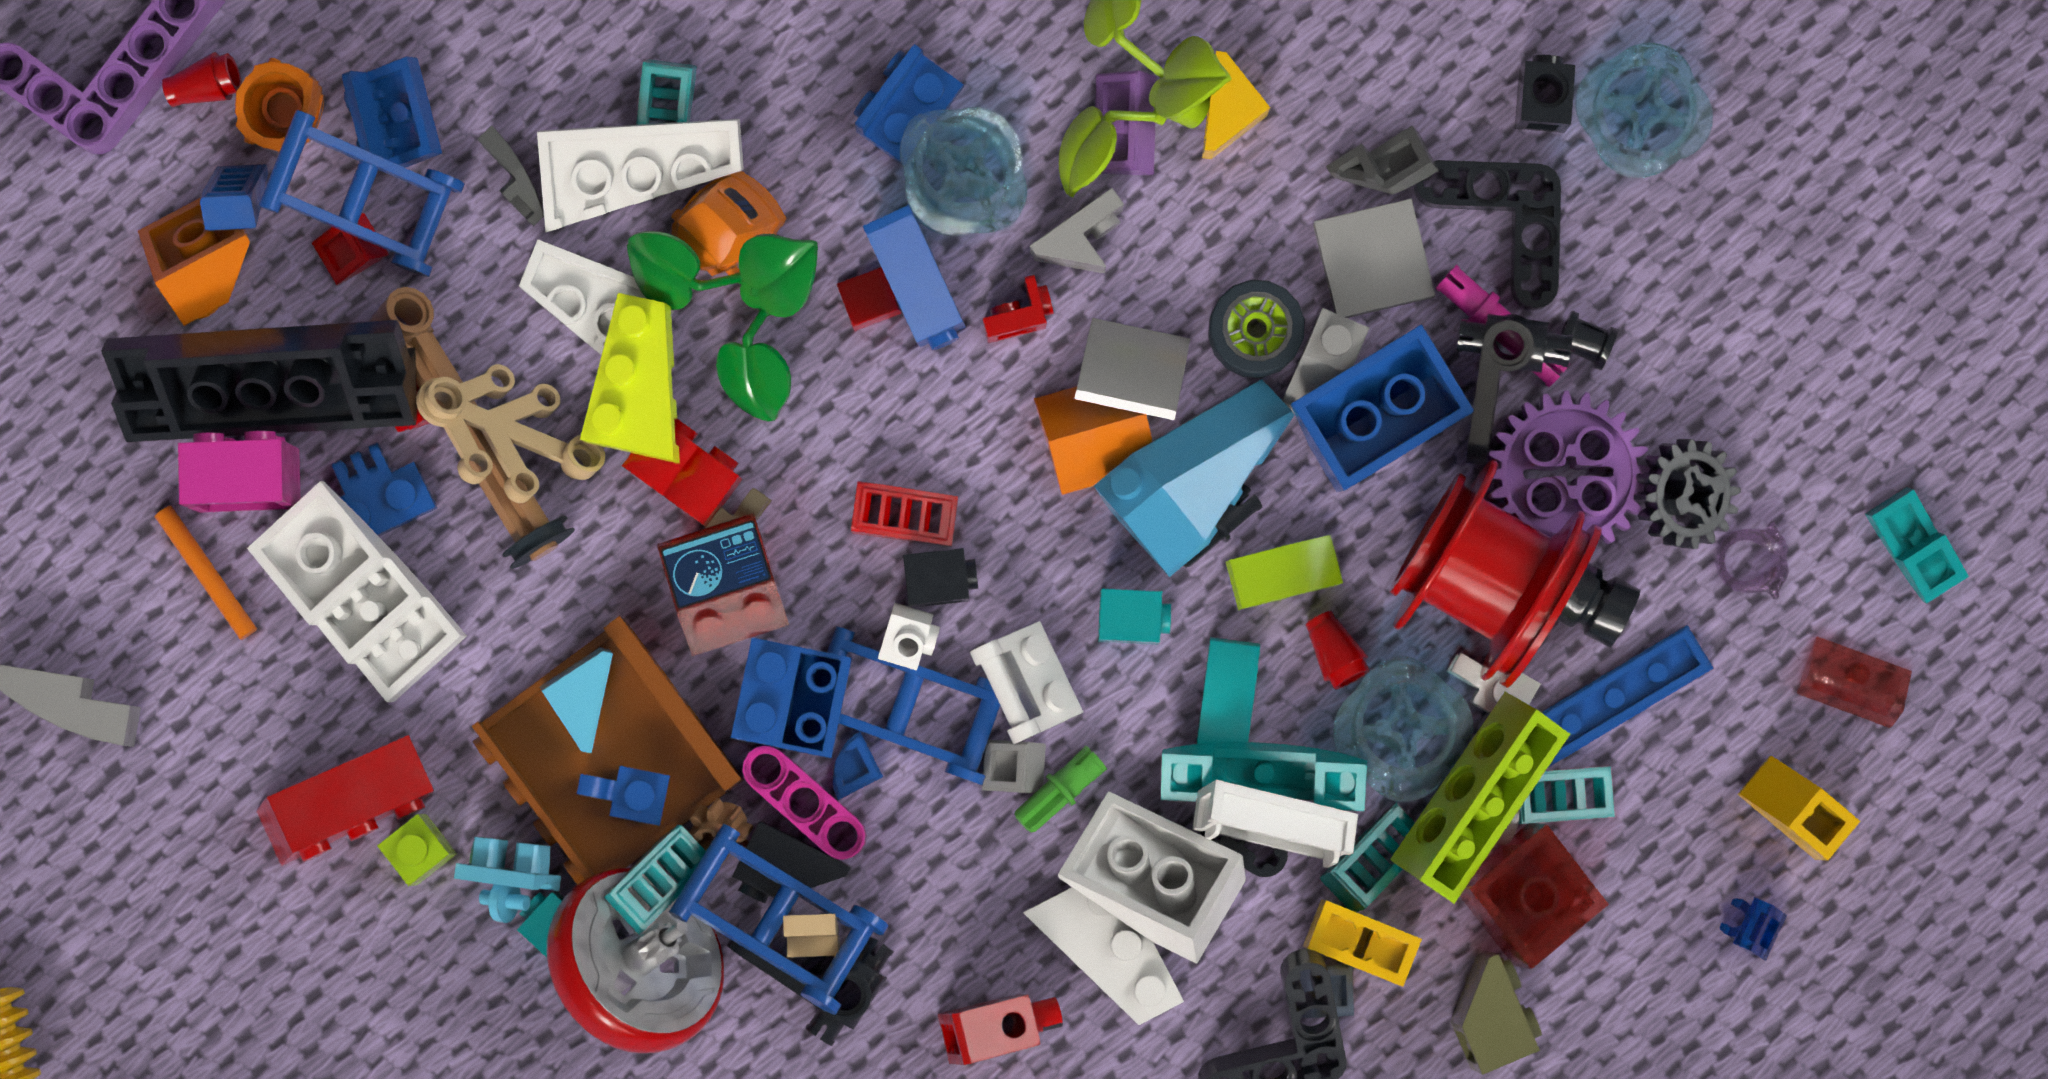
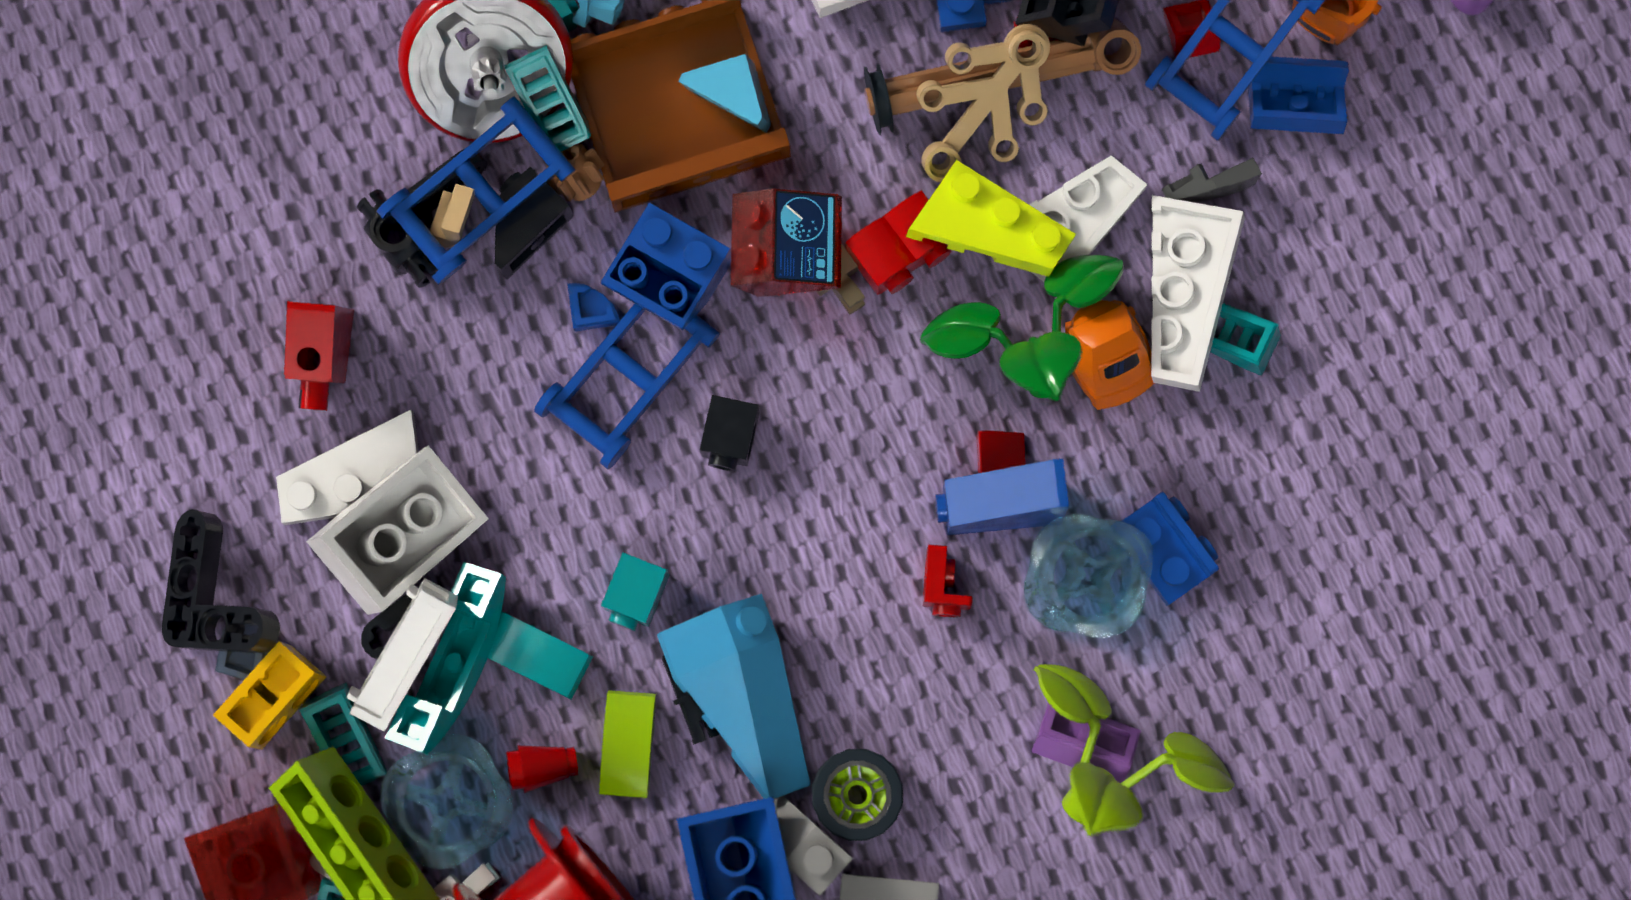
camera: 115 degrees right, 5 degrees down
(634, 796) = (633, 111): blue plate -> none
(782, 790) = (549, 253): dark pink beam -> none
(862, 508) = (816, 386): red slope -> none
(908, 636) = (686, 388): white plate -> none
(1014, 766) = (541, 446): light grey slope -> none
(1028, 681) = (608, 489): white plate -> none
(1060, 789) = (505, 477): bright green axle -> none
(1068, 242) = (994, 650): light grey slope -> none
(1088, 437) = (816, 615): orange slope -> none
(1132, 369) = (856, 666): light grey slope -> none
(1231, 110) = (1067, 842): yellow slope -> none
(1489, 1017) = (152, 785): olive slope -> none

